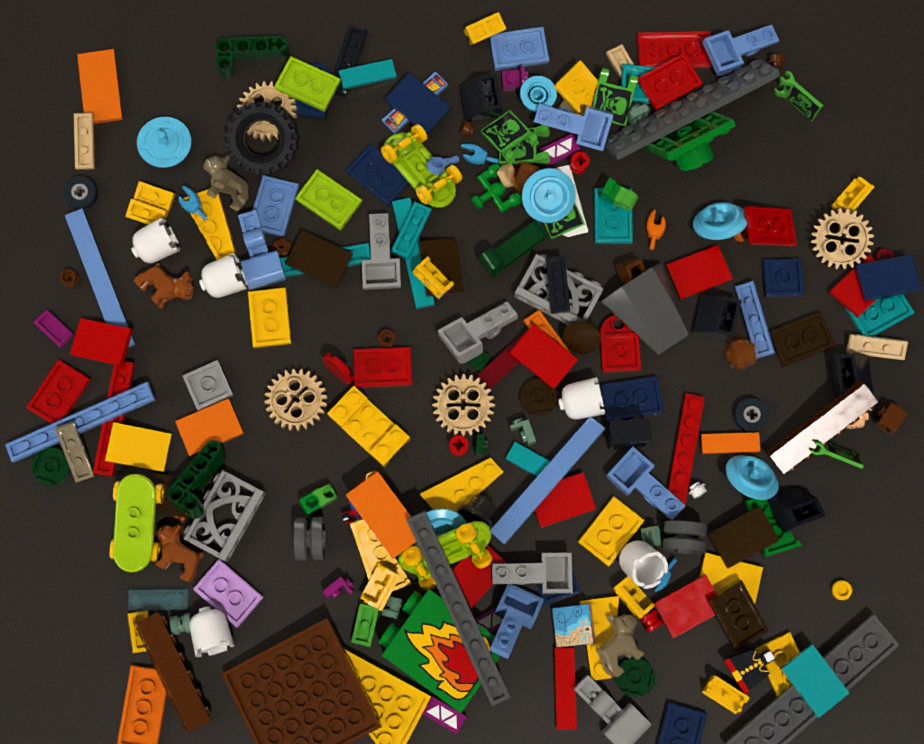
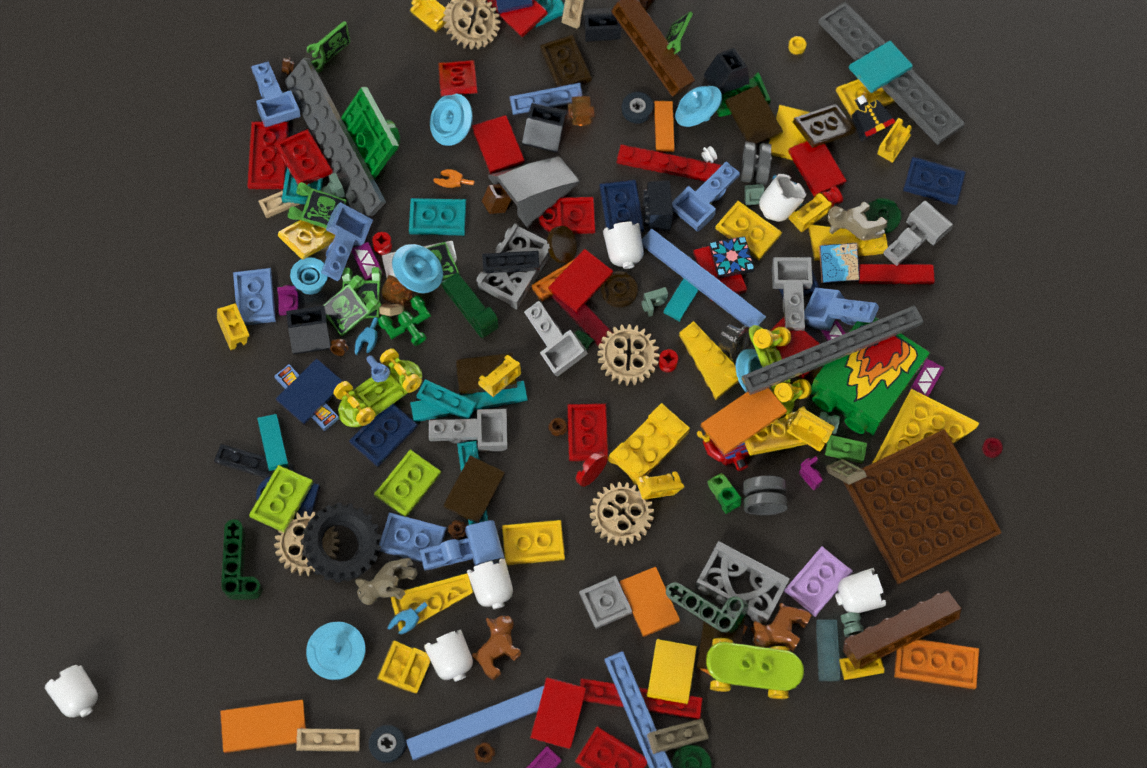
camera: 90 degrees left, 10 degrees down
(323, 435) = (659, 485): none -> yellow hinge
(332, 620) = (845, 471): none -> dark tan tile
(481, 445) = (667, 340): dark green plate -> none
(575, 510) = (731, 257): none -> tile
(619, 195) = (420, 207): leg -> none
(783, 278) = (505, 74): dark blue tile -> none

